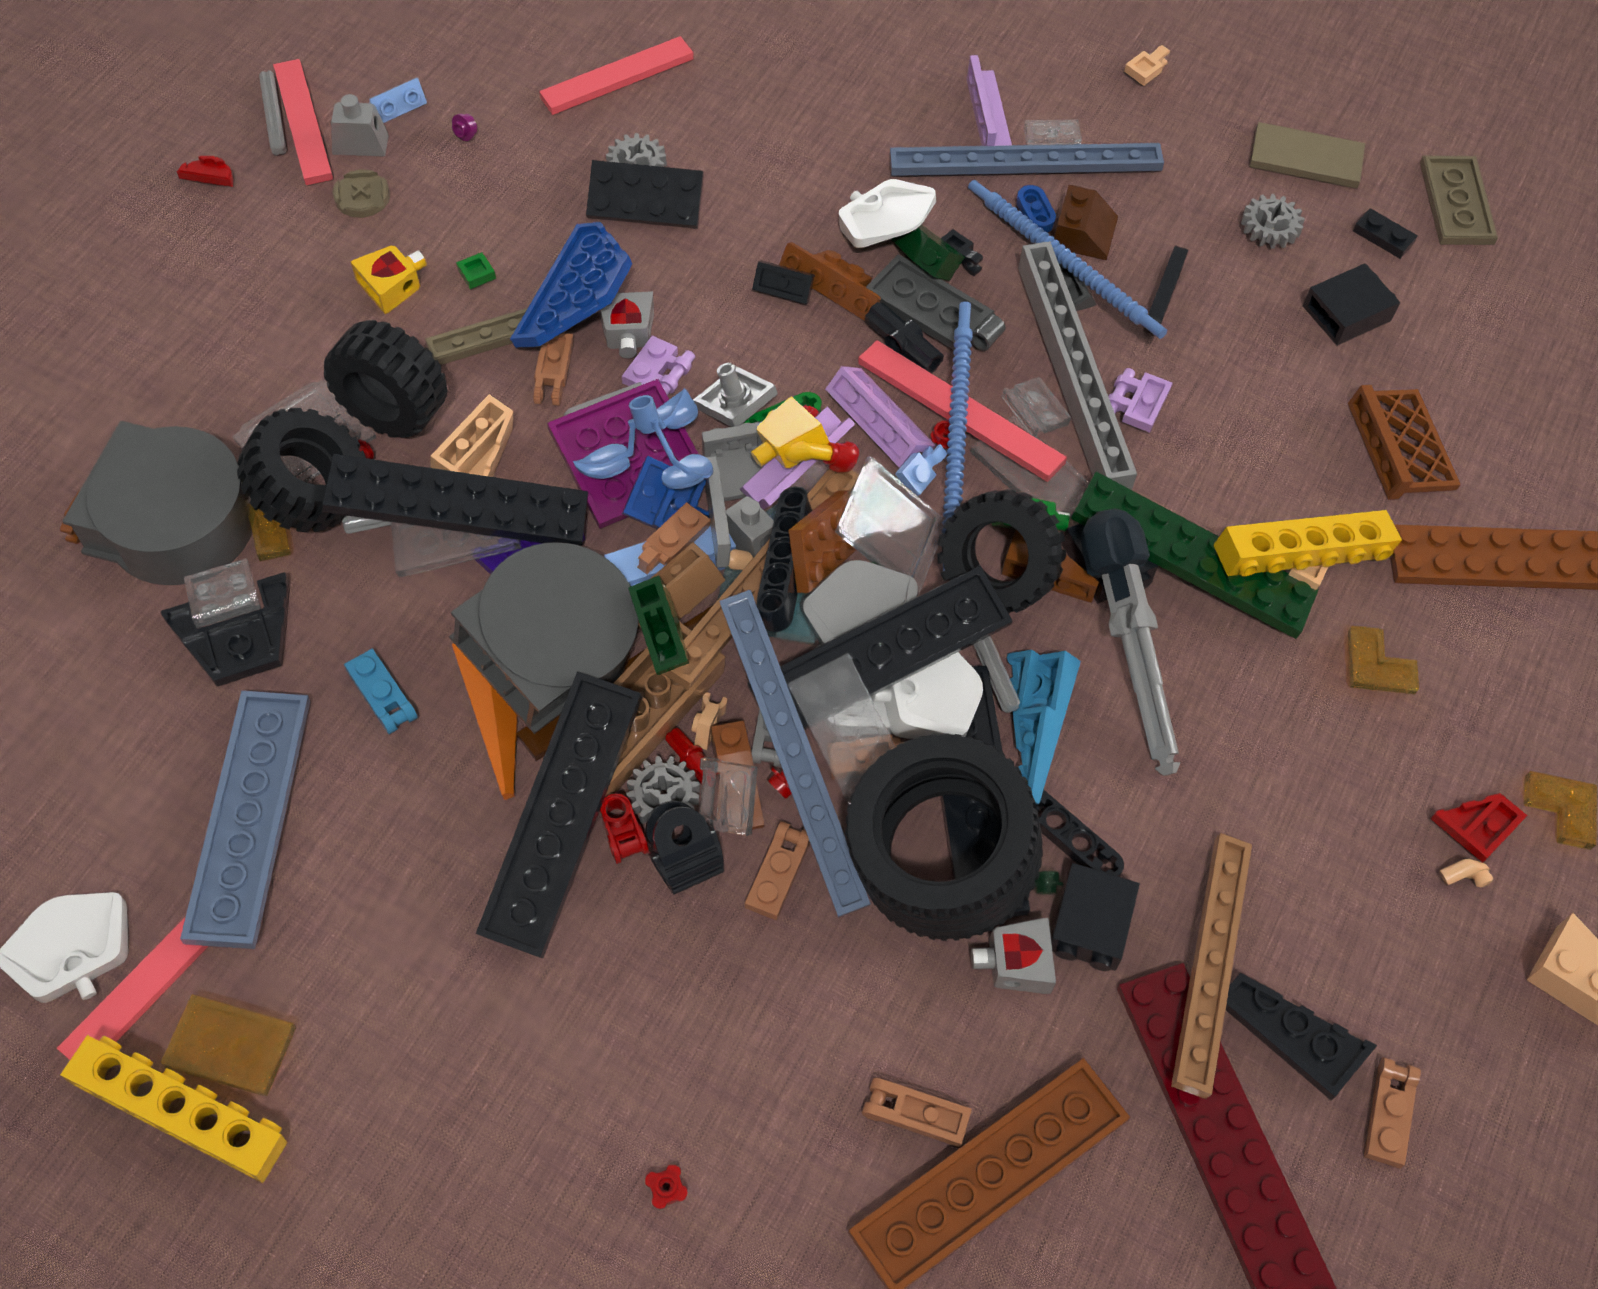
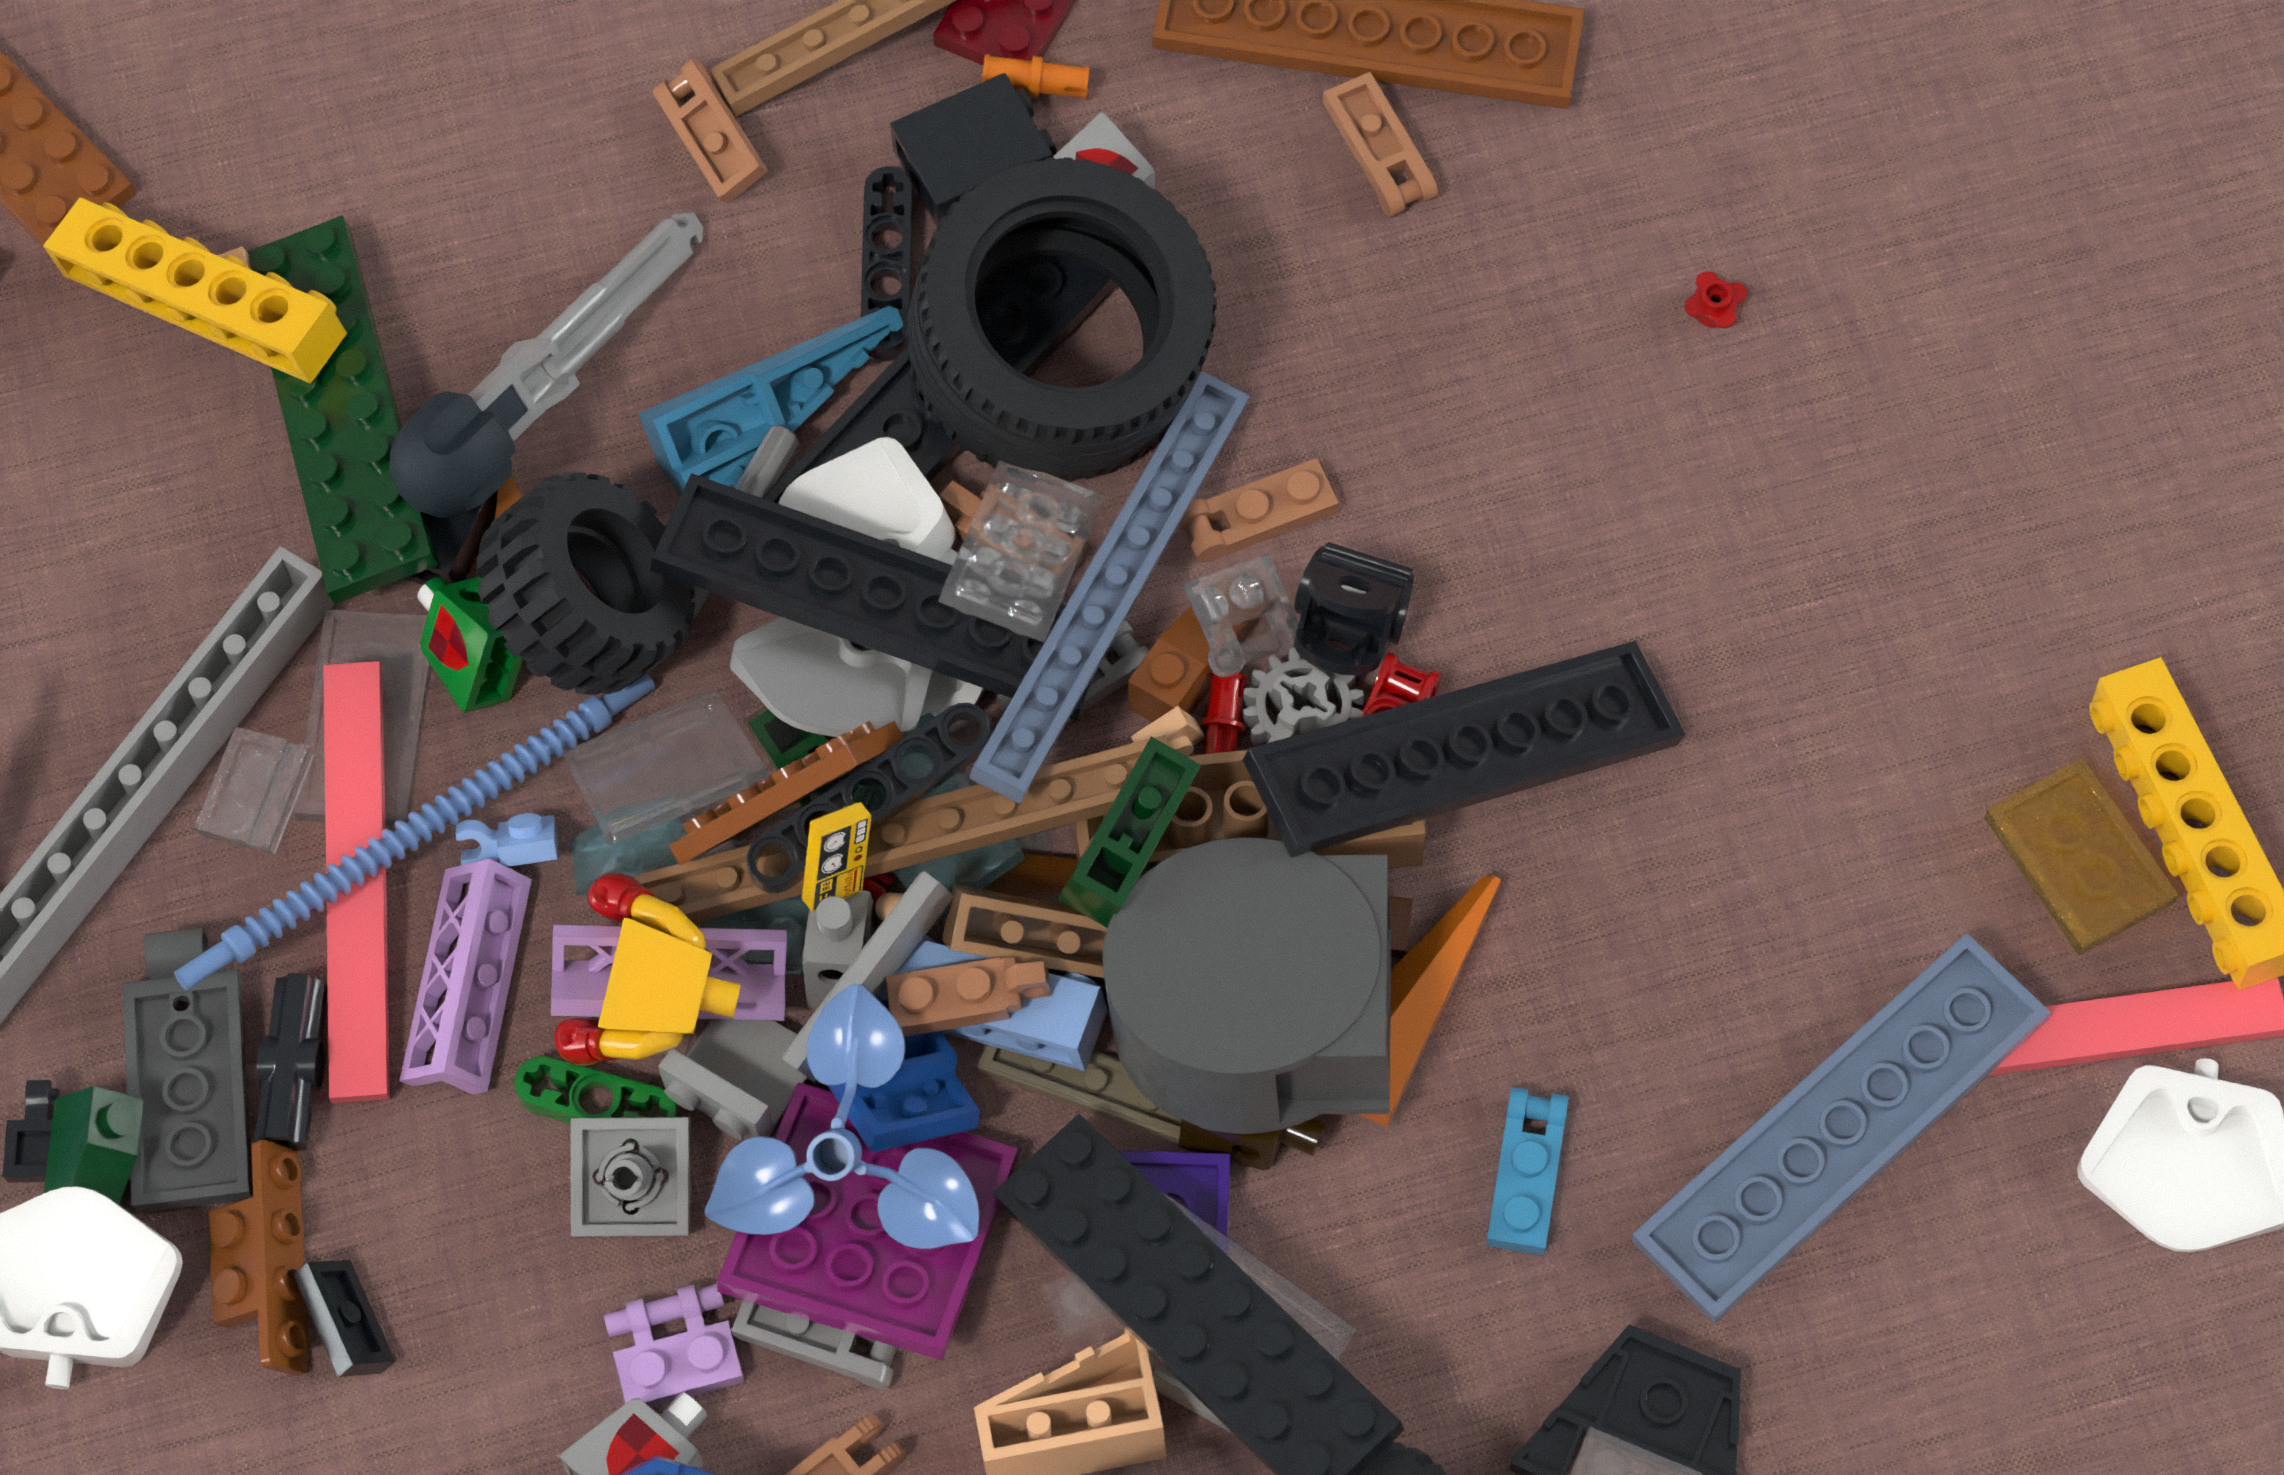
camera: 130 degrees left, 5 degrees up
(768, 515) = (836, 855): none -> tile
(780, 783) = (1153, 598): red plate -> none
(941, 430) = (429, 879): red plate -> none
(1112, 986) = (1039, 76): none -> orange pin
(1147, 399) = (101, 670): lavender plate -> none
(1216, 816) = (710, 131): none -> nougat plate
(1372, 669) = (311, 123): clear yellow plate -> none

